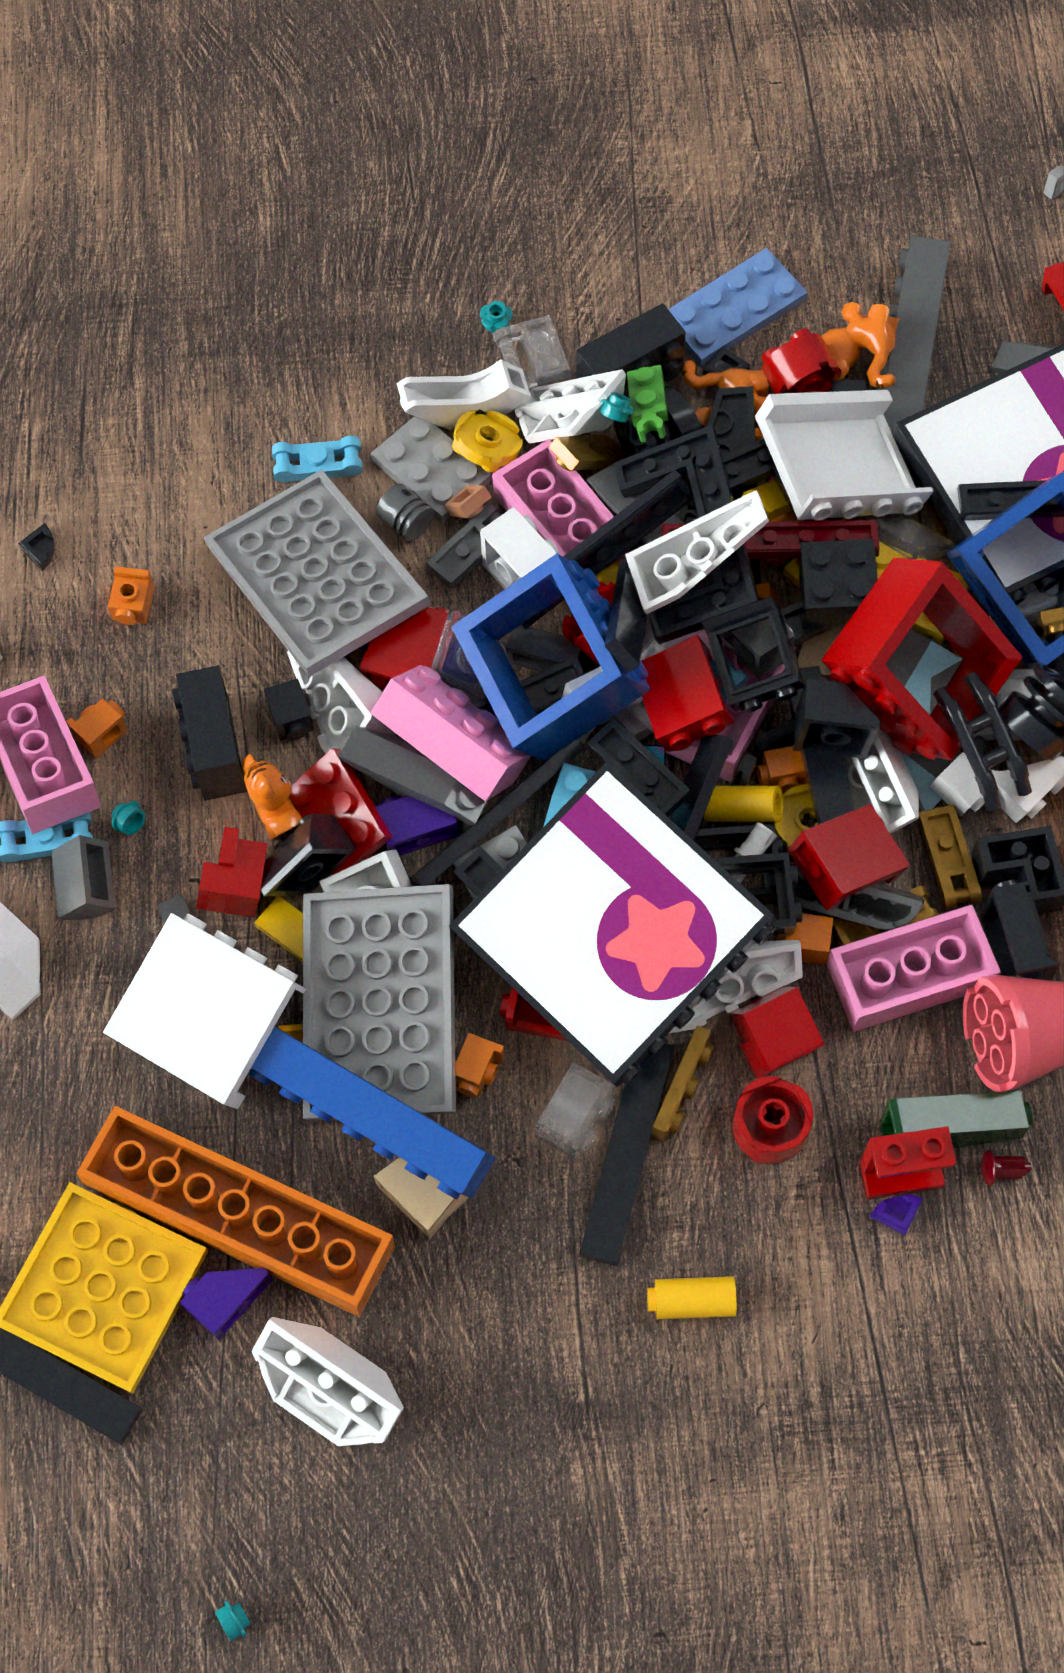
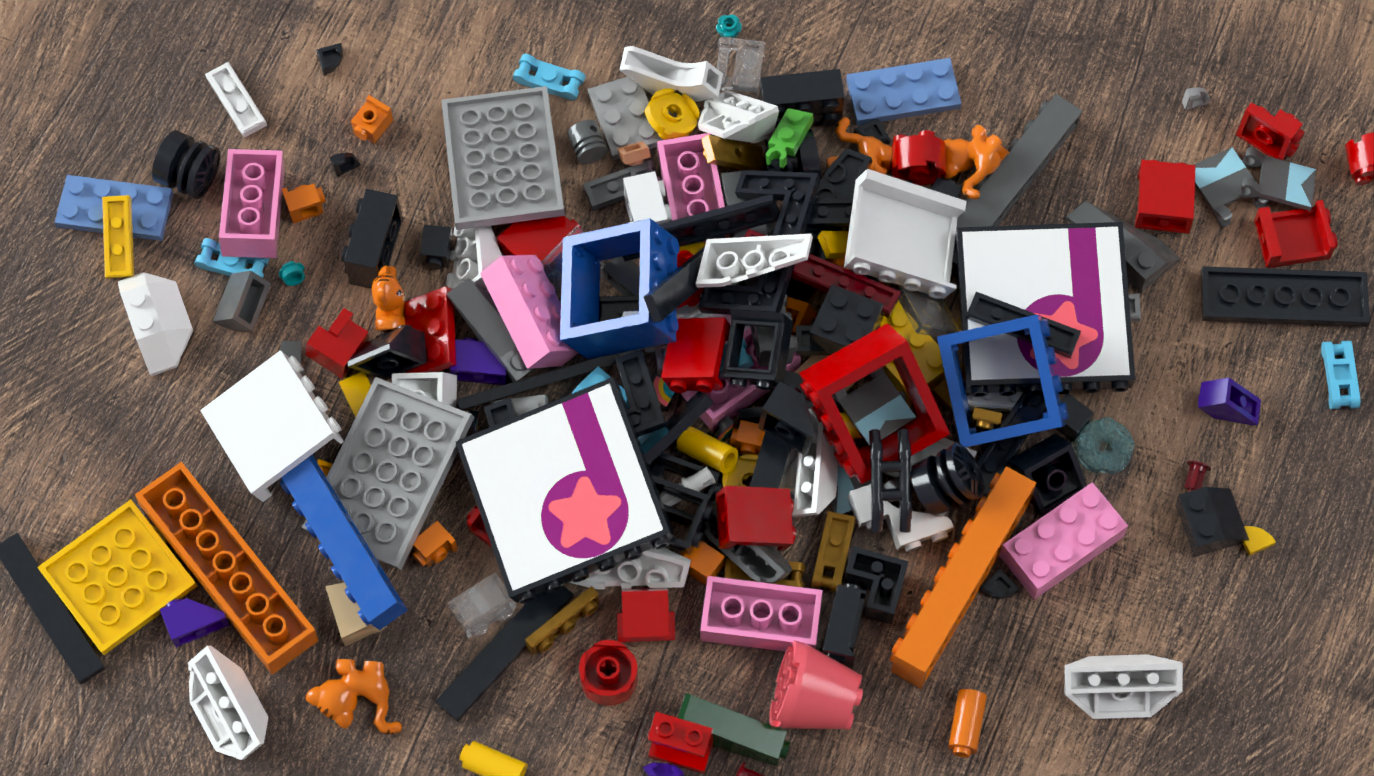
camera: 25 degrees right, 0 degrees up
(122, 661) = (343, 163): none -> black tile
(460, 1305) = (339, 696): none -> orange animal
(617, 407) = (760, 132): teal plate -> none

